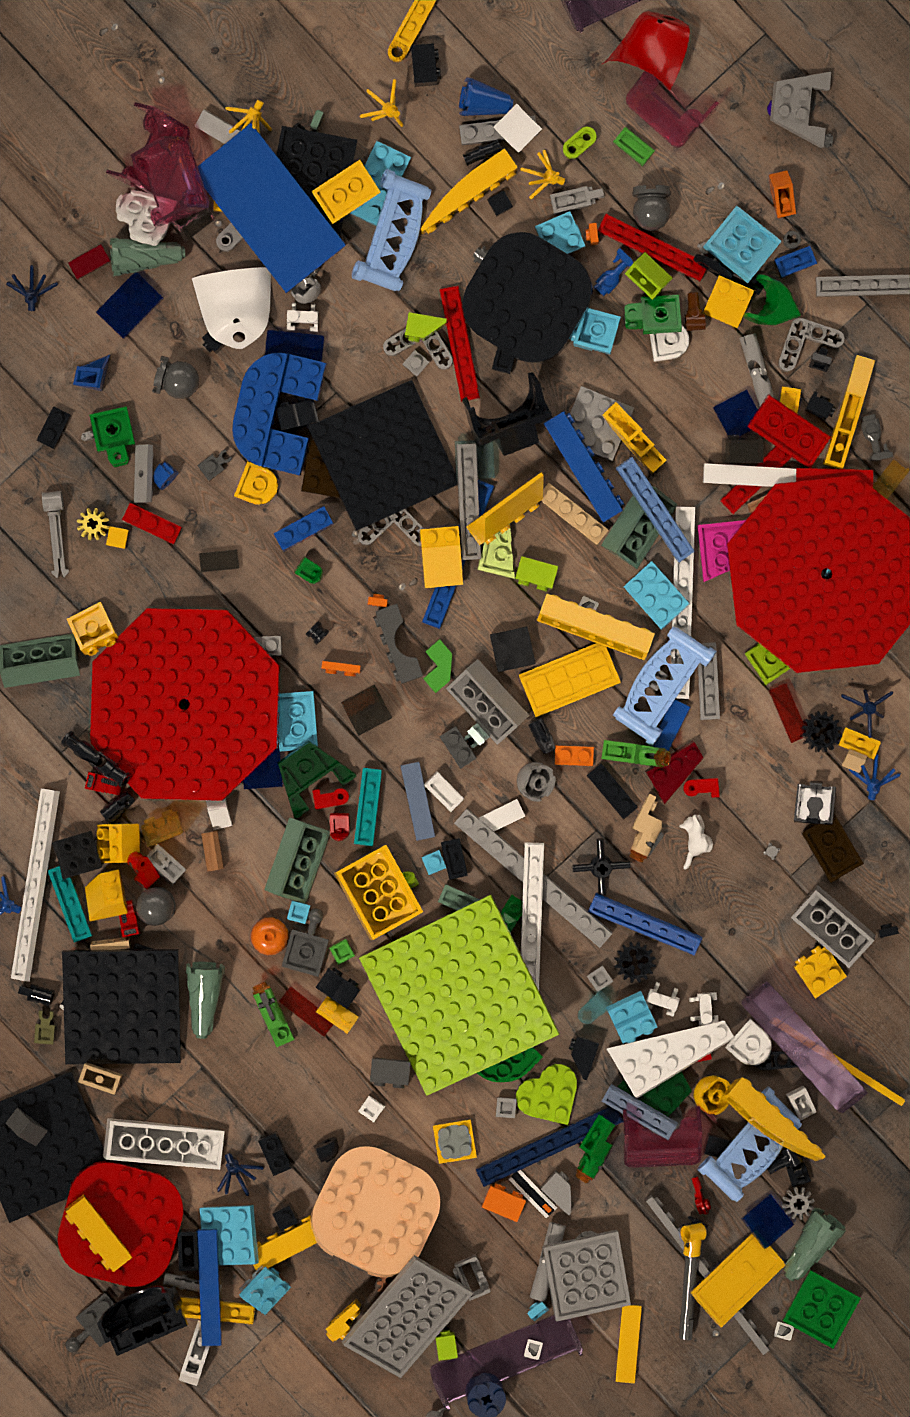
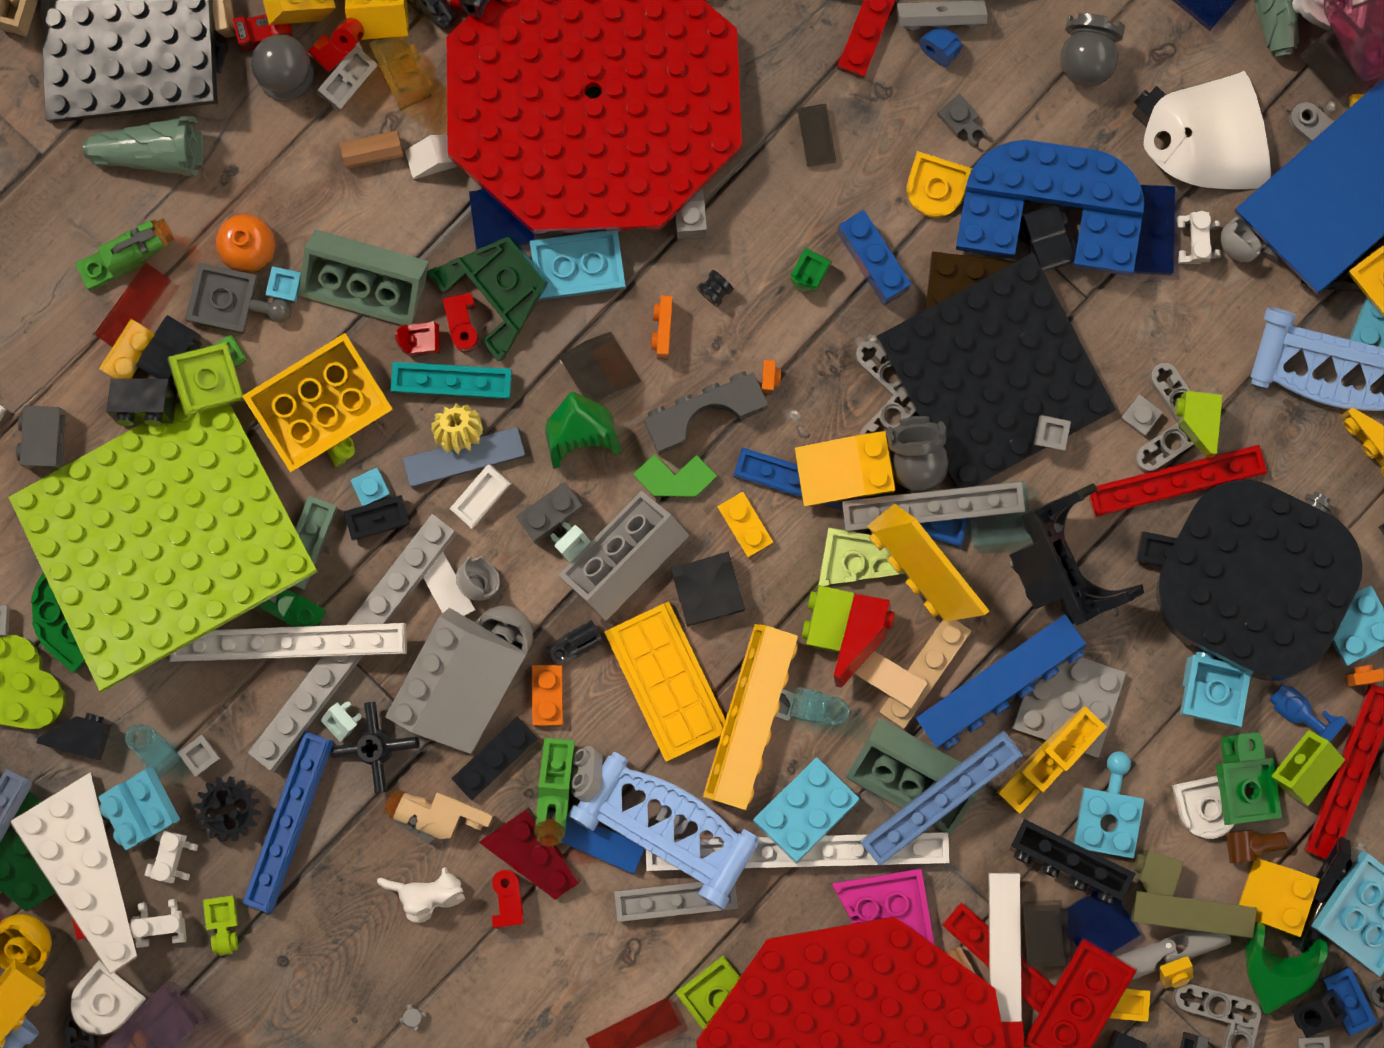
camera: 85 degrees right, 5 degrees down
(359, 963) = (205, 378): none -> lime tile
(371, 1006) = (141, 401): none -> black brick
(400, 804) = (457, 428): none -> light yellow gear
(404, 725) = (579, 424): none -> green animal
(426, 422) = (1052, 433): none -> light grey plate
(434, 509) = (918, 453): none -> dark grey tile
(472, 623) = (745, 524): none -> yellow plate
(498, 795) = (477, 579): none -> light grey hair
(548, 552) = (863, 634): none -> red slope
(564, 812) = (456, 682): none -> light grey slope
(573, 541) = (892, 680): none -> tan tile
(583, 888) = (339, 721): none -> light aqua tile
(591, 586) = (813, 706): none -> clear light blue piece
(626, 732) = (586, 773): none -> light grey plate
(663, 410) = (1124, 808): none -> medium azure plate
(699, 429) = (1071, 861): none -> black brick
(701, 969) = (220, 915): none -> lime plate
(713, 376) = (1157, 872): none -> olive slope
(736, 356) = (1193, 914): none -> olive tile
(772, 368) = (1176, 973): none -> yellow plate
(797, 277) = (1326, 1005): none -> black brick

